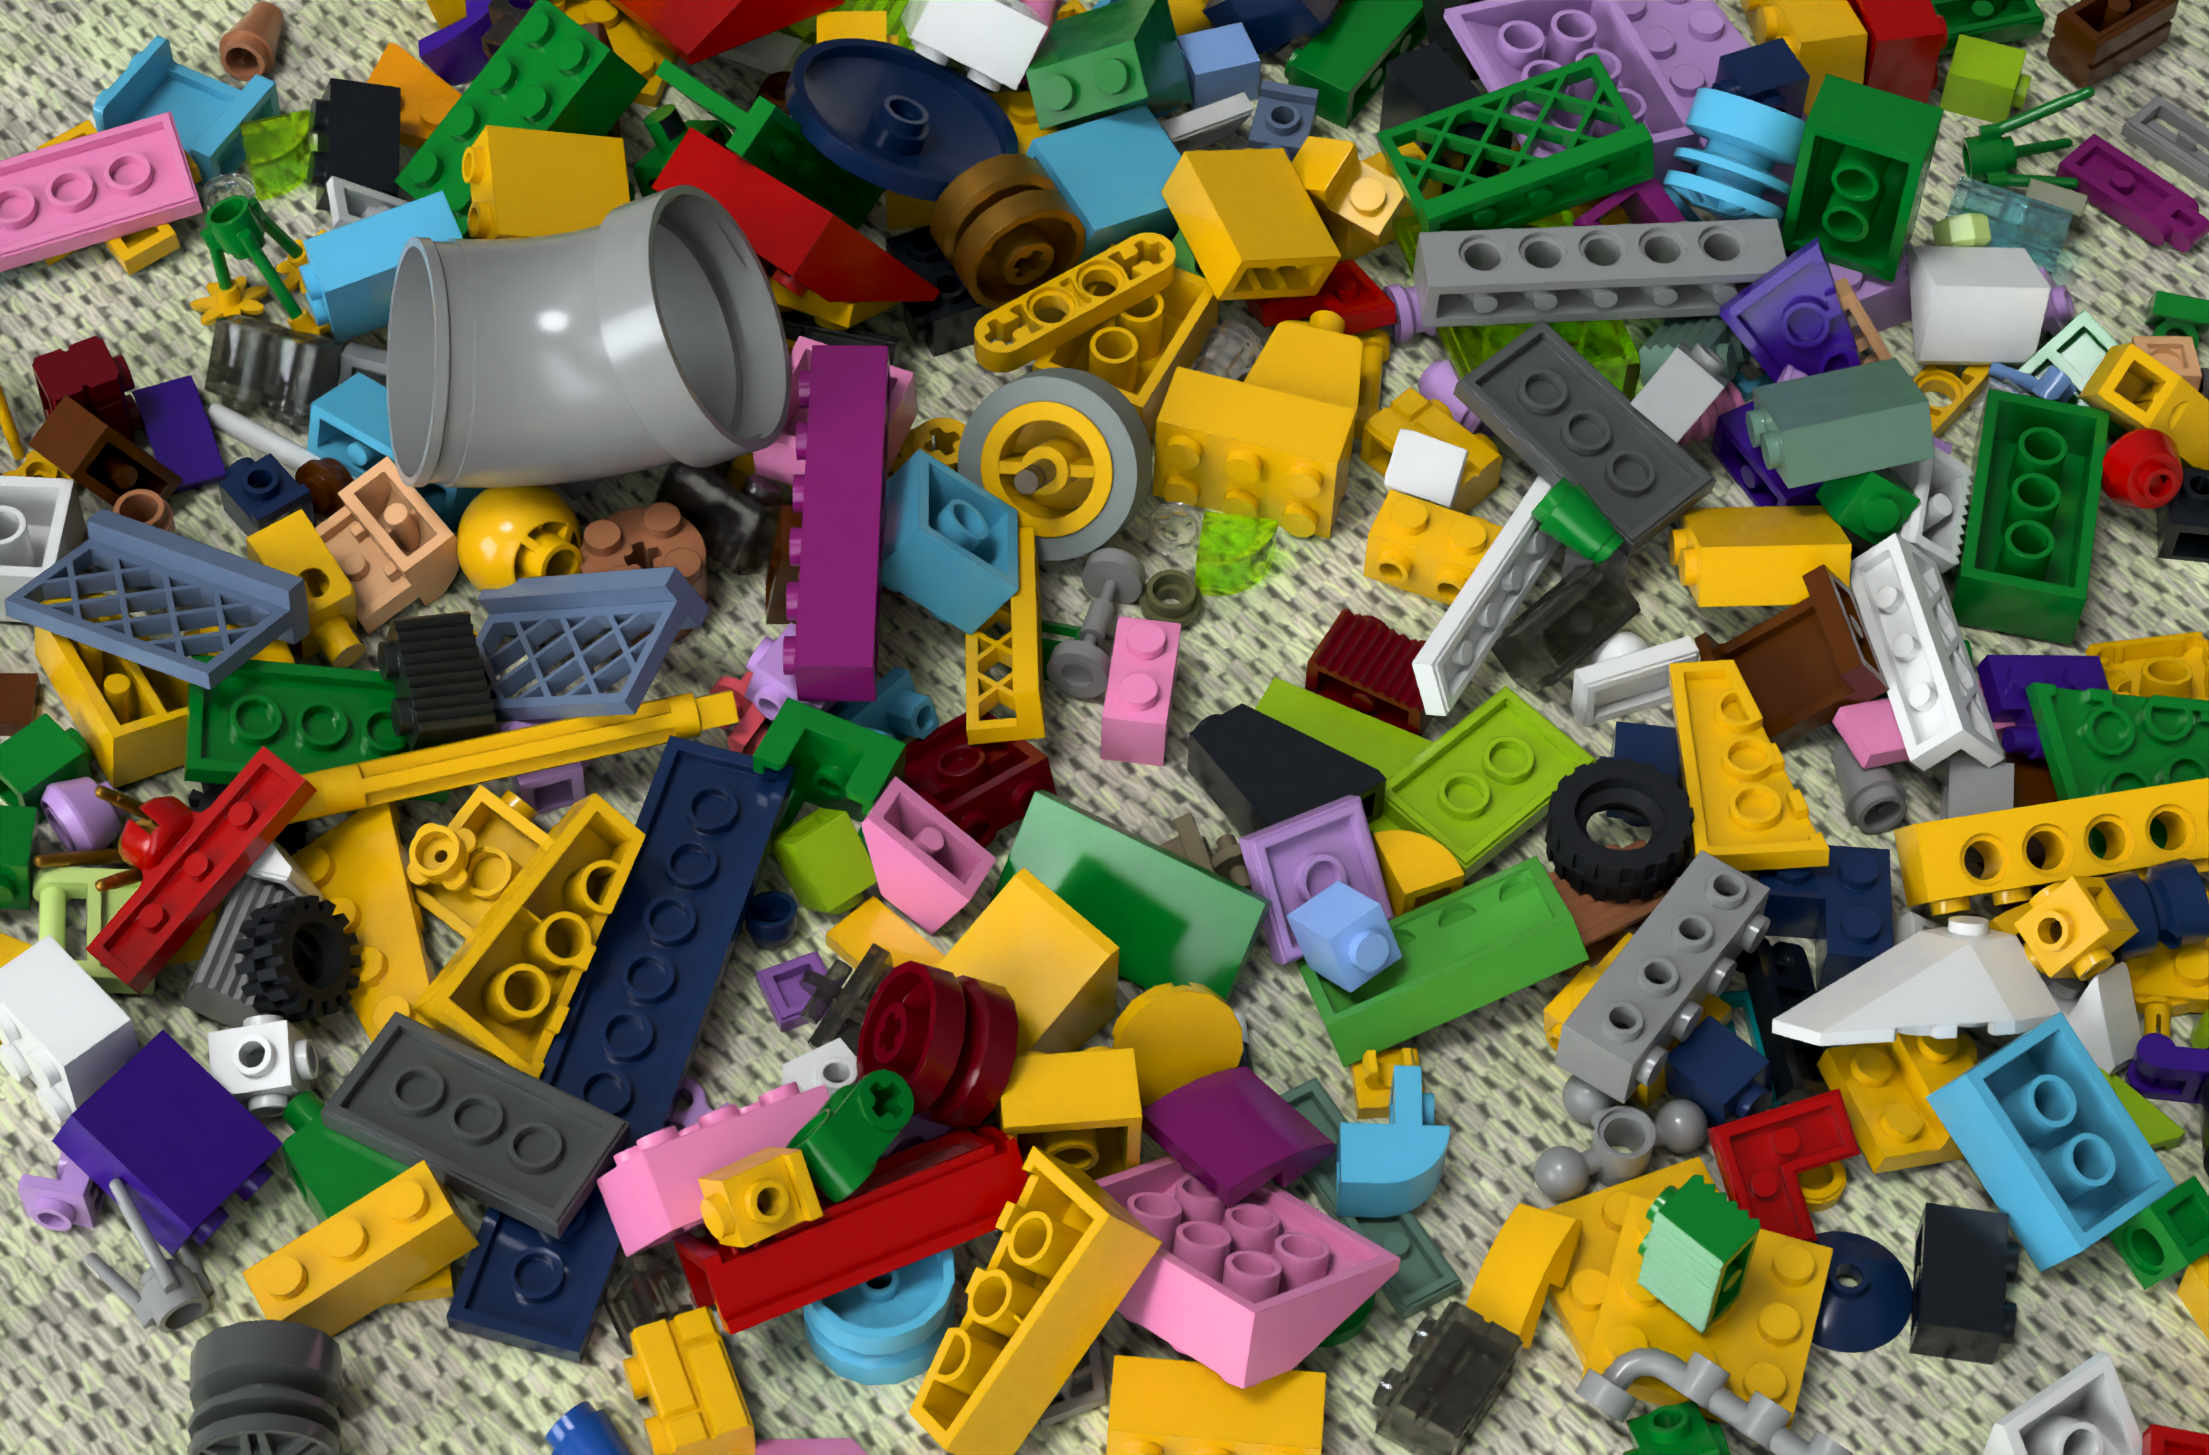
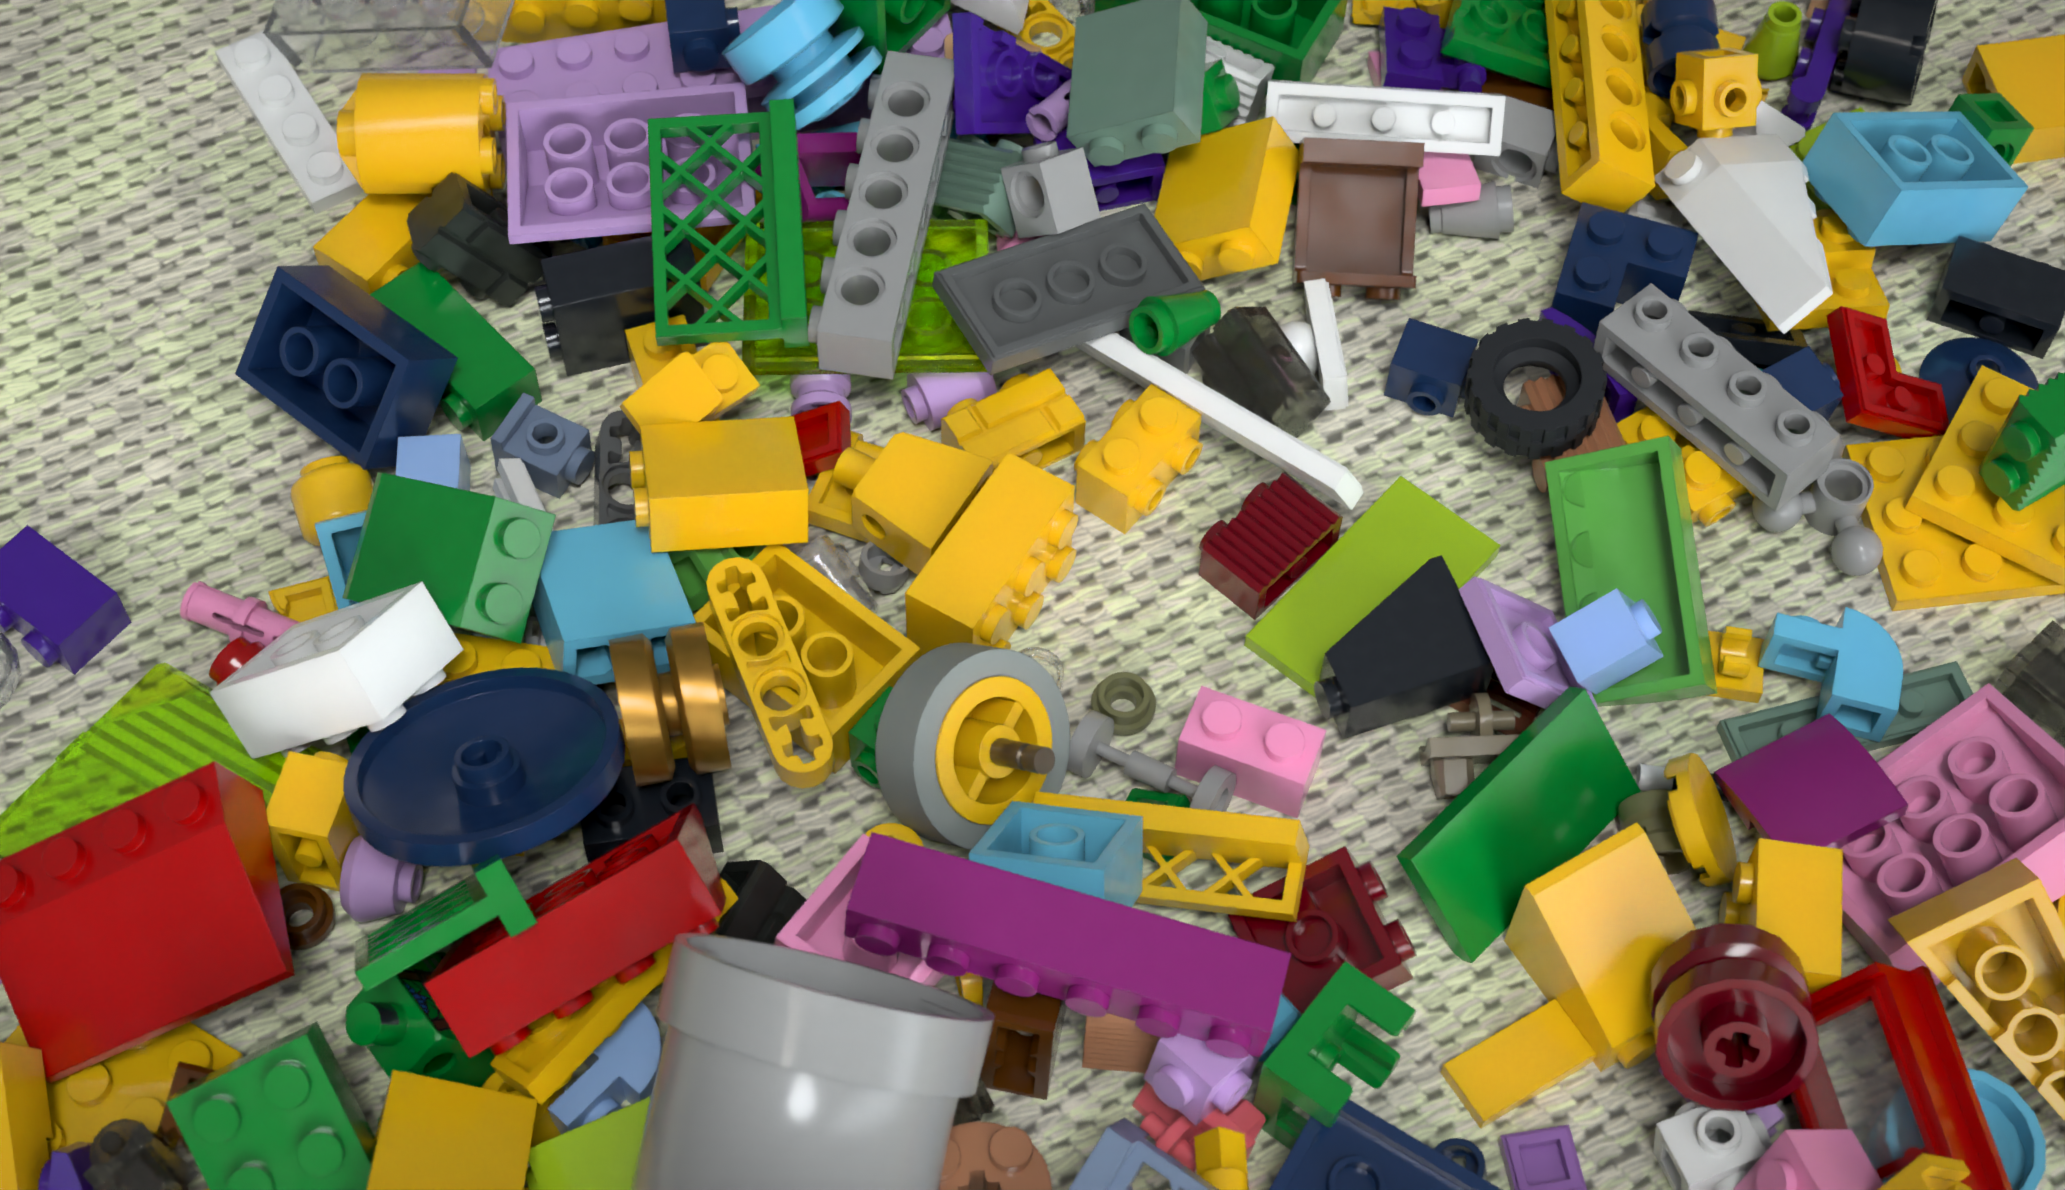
camera: 75 degrees left, 5 degrees up
(825, 861) = (1413, 1091): lime brick -> none
(846, 1004) = (1596, 1113): clear smoke hips -> none
(853, 1132) = (1851, 1112): green piece -> none
(922, 857) = (1452, 987): bright pink slope -> none
(1234, 552) = (1089, 631): clear neon green brick -> none
(1415, 869) = (1523, 567): yellow brick -> none
(1425, 468) = (1062, 429): white slope -> none
(1483, 780) = (1422, 490): lime tile -> none
(1520, 1266) = (1968, 606): yellow slope -> none
(1736, 775) = (1485, 282): yellow wing -> none

